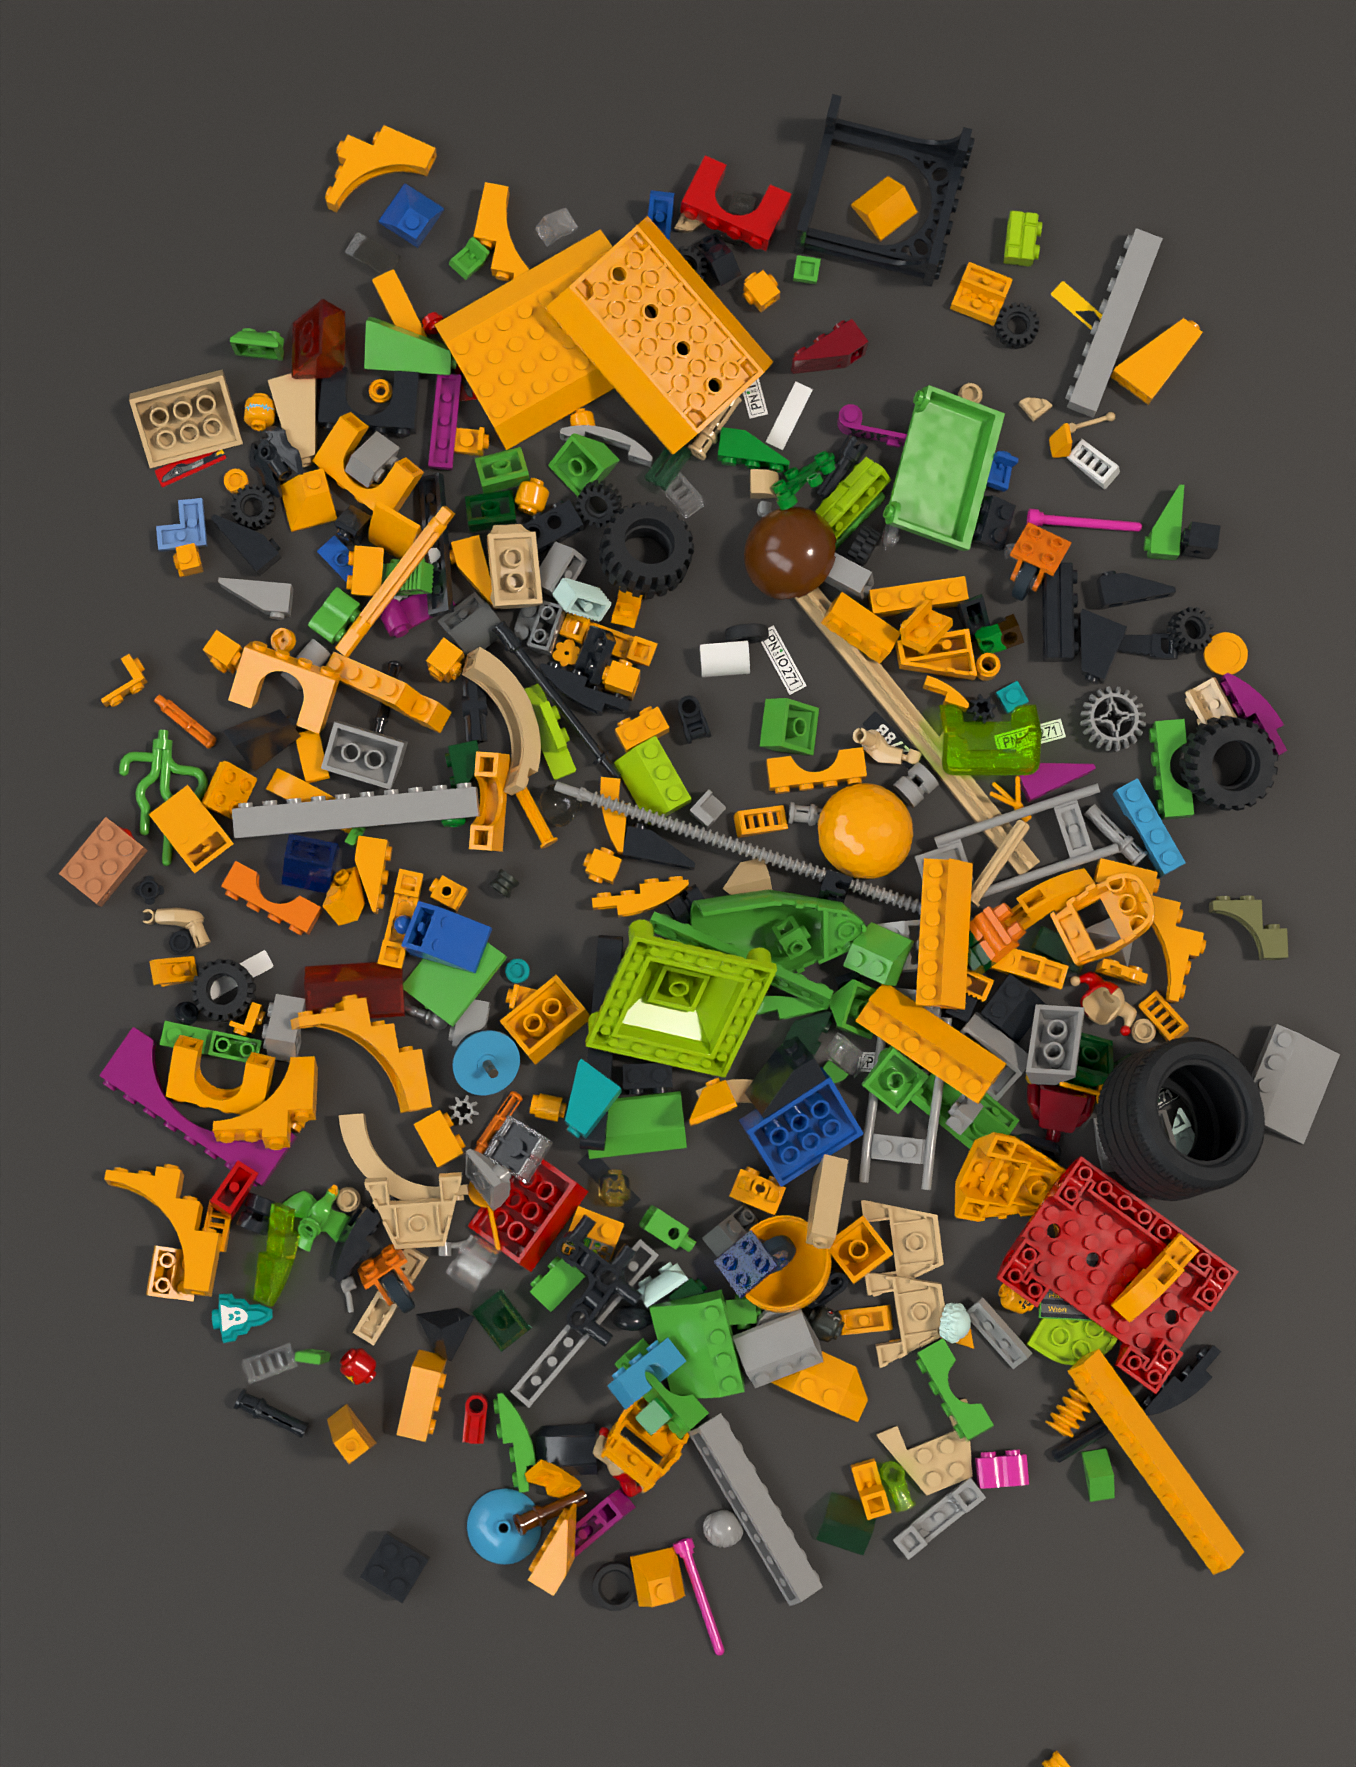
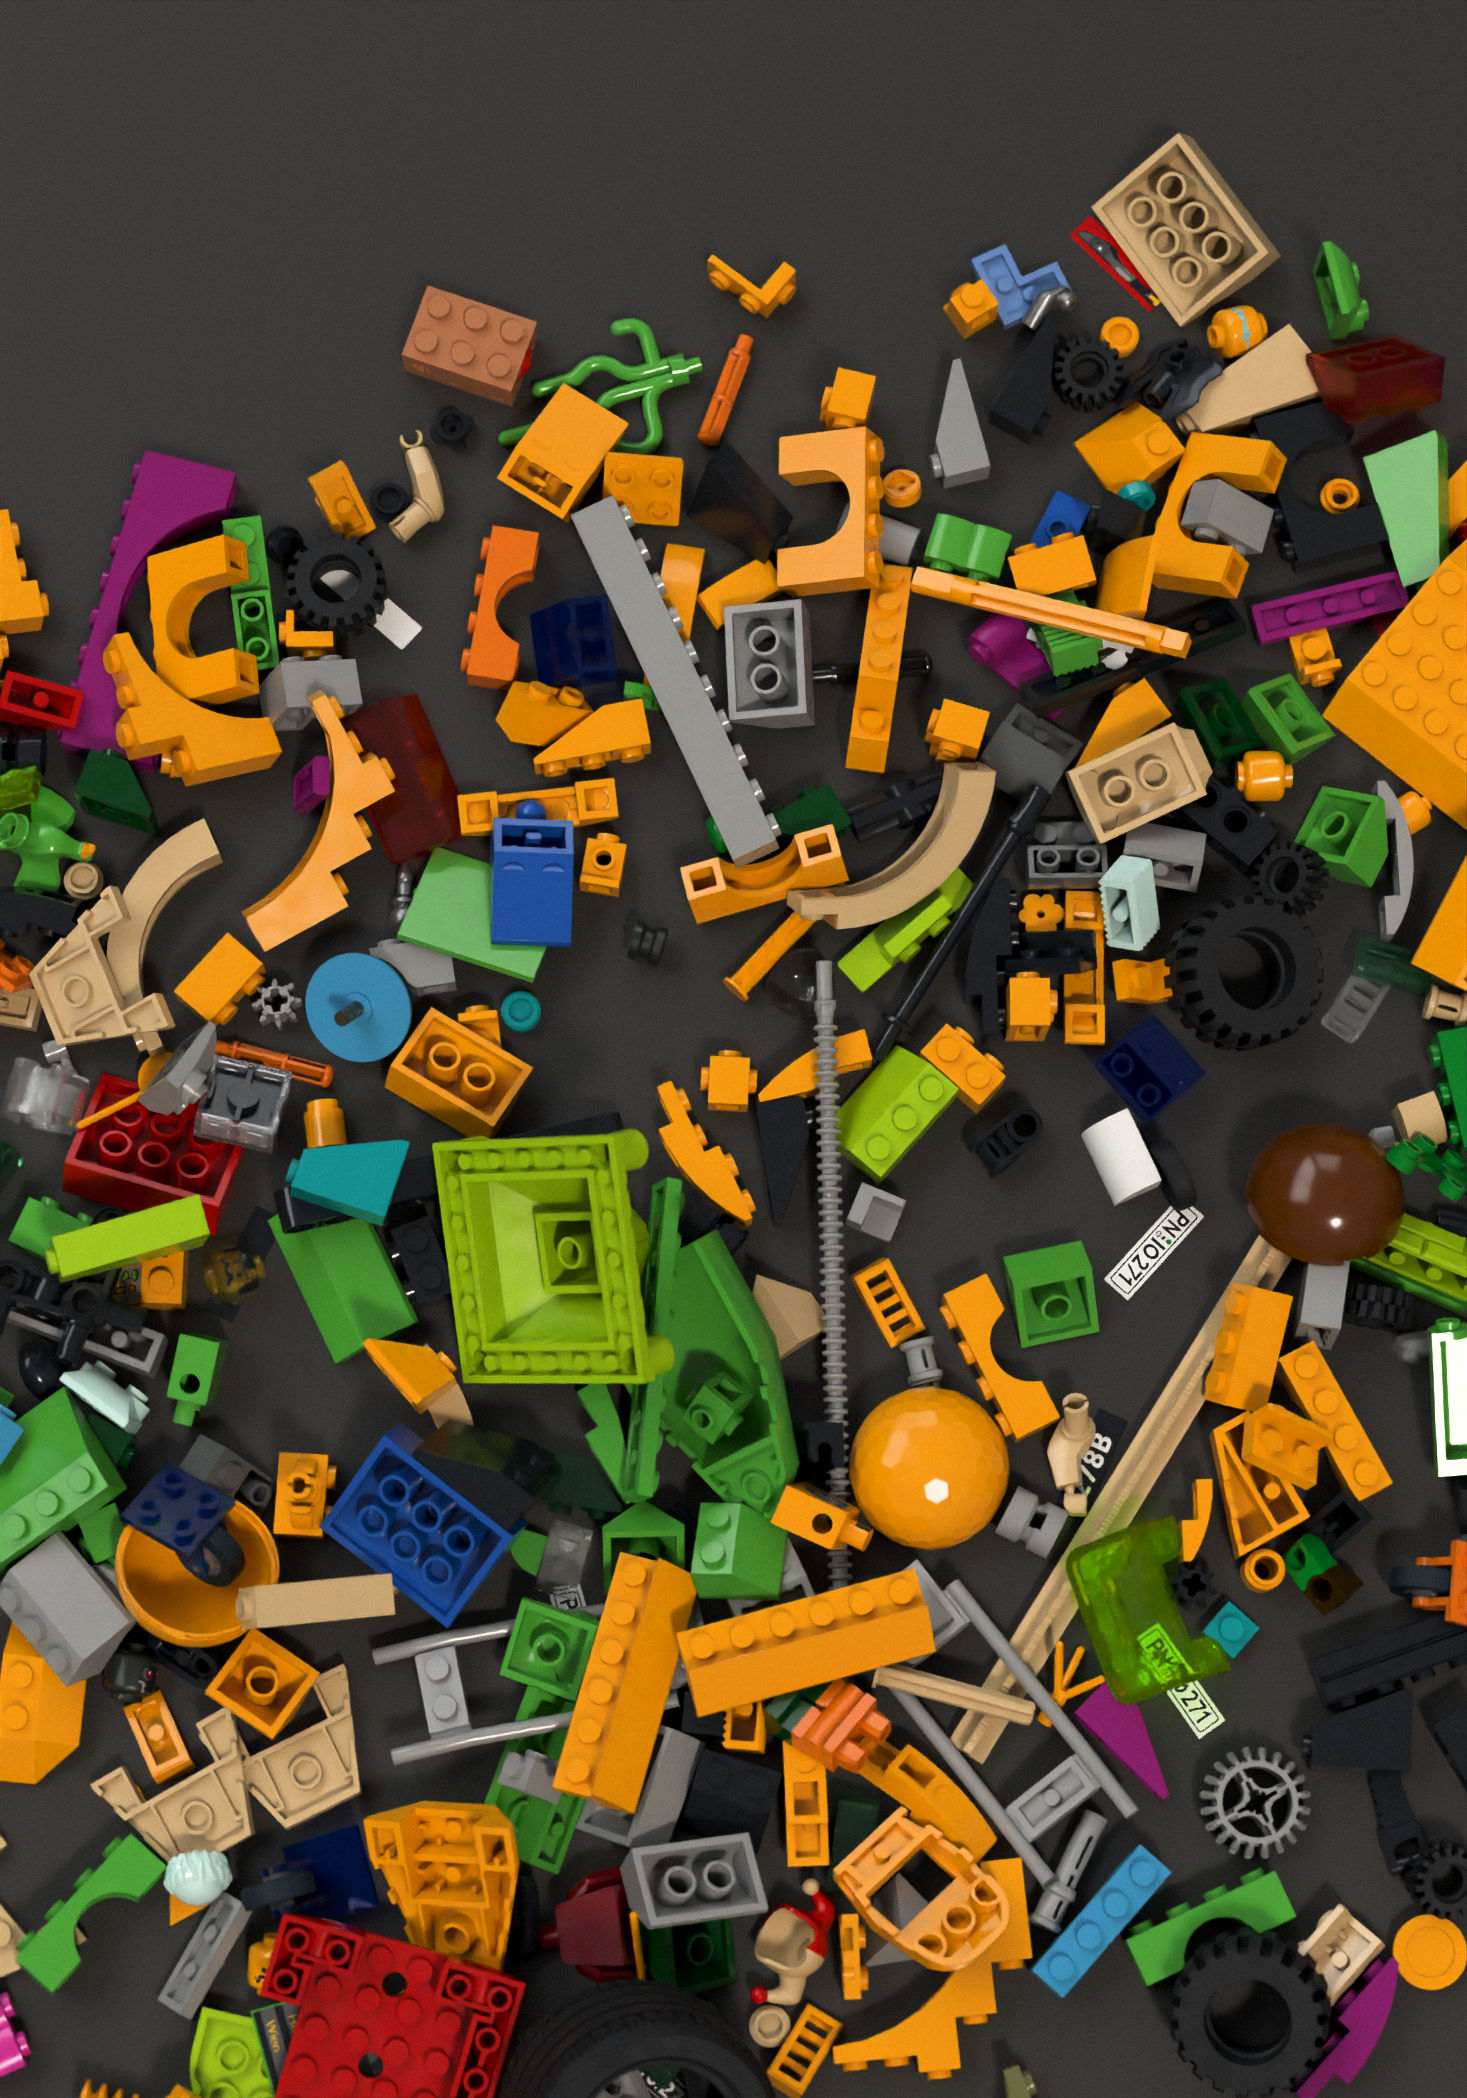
camera: 70 degrees right, 5 degrees down
(202, 517) = (1048, 301): none -> flat silver arm
(304, 1161) = (113, 793): none -> dark green slope
(338, 506) = (1138, 493): none -> teal tile
(341, 1046) = (311, 785): none -> magenta plate
(584, 1239) = (128, 1239): none -> lime slope
(681, 624) = (1150, 1070): none -> clear blue slope
(868, 907) = (806, 1512): none -> light orange torso
(980, 1251) = (326, 1876): none -> clear blue plate

